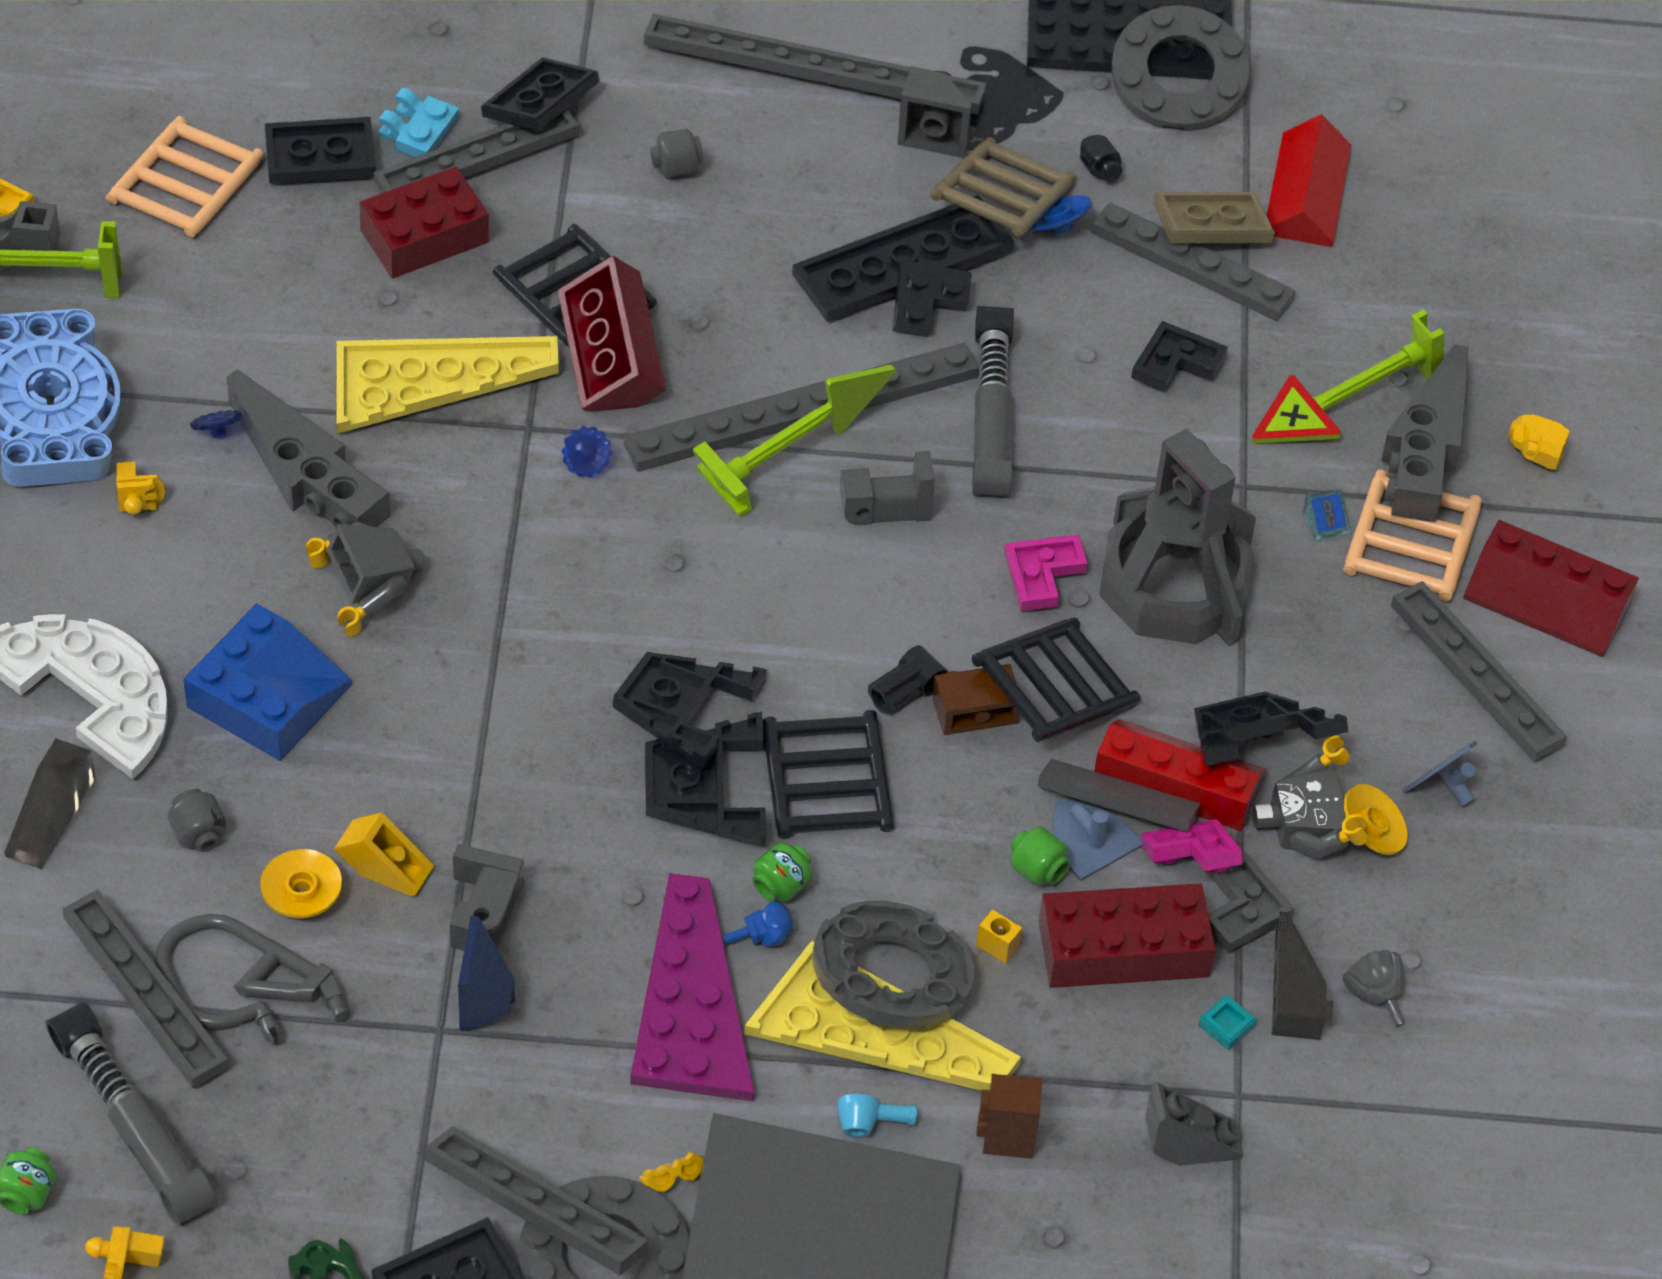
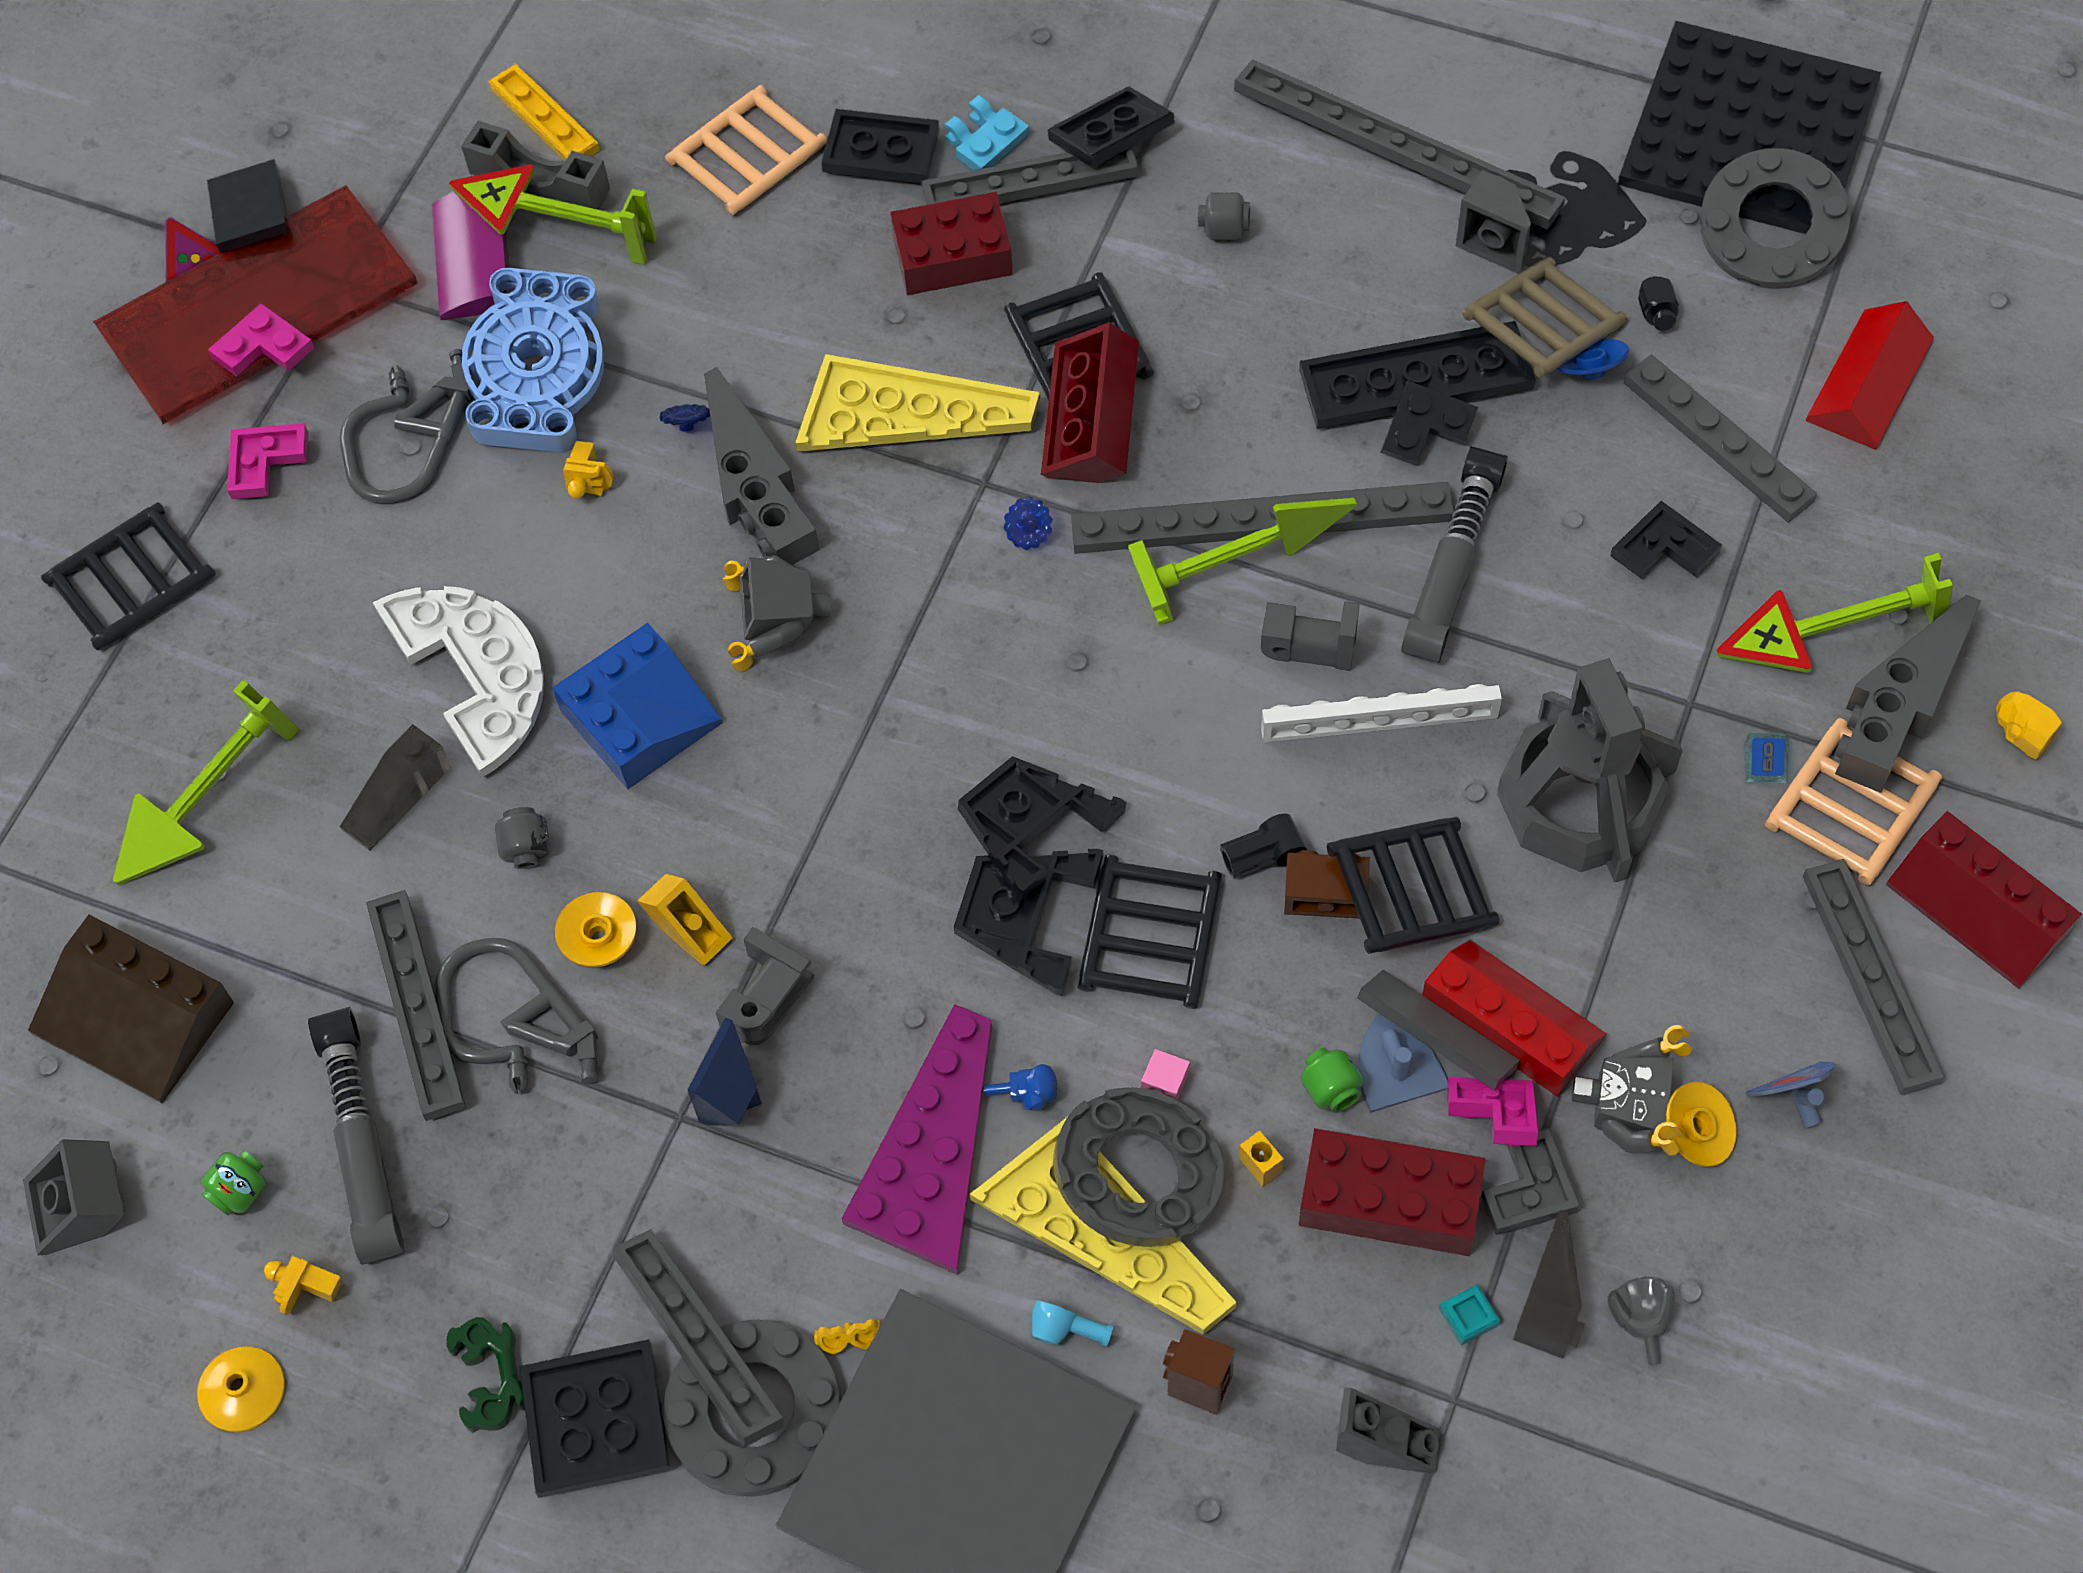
camera: 25 degrees right, 10 degrees up
(782, 872) = (1063, 1033): bright green head -> none
(887, 885) = (1166, 1074): none -> bright pink piece
(970, 547) = (1381, 713): none -> white plate
(1037, 562) = (1440, 743): dark pink plate -> none
(1213, 217) = (1755, 394): dark tan tile -> none
(1233, 722) = (1604, 976): black wing -> none

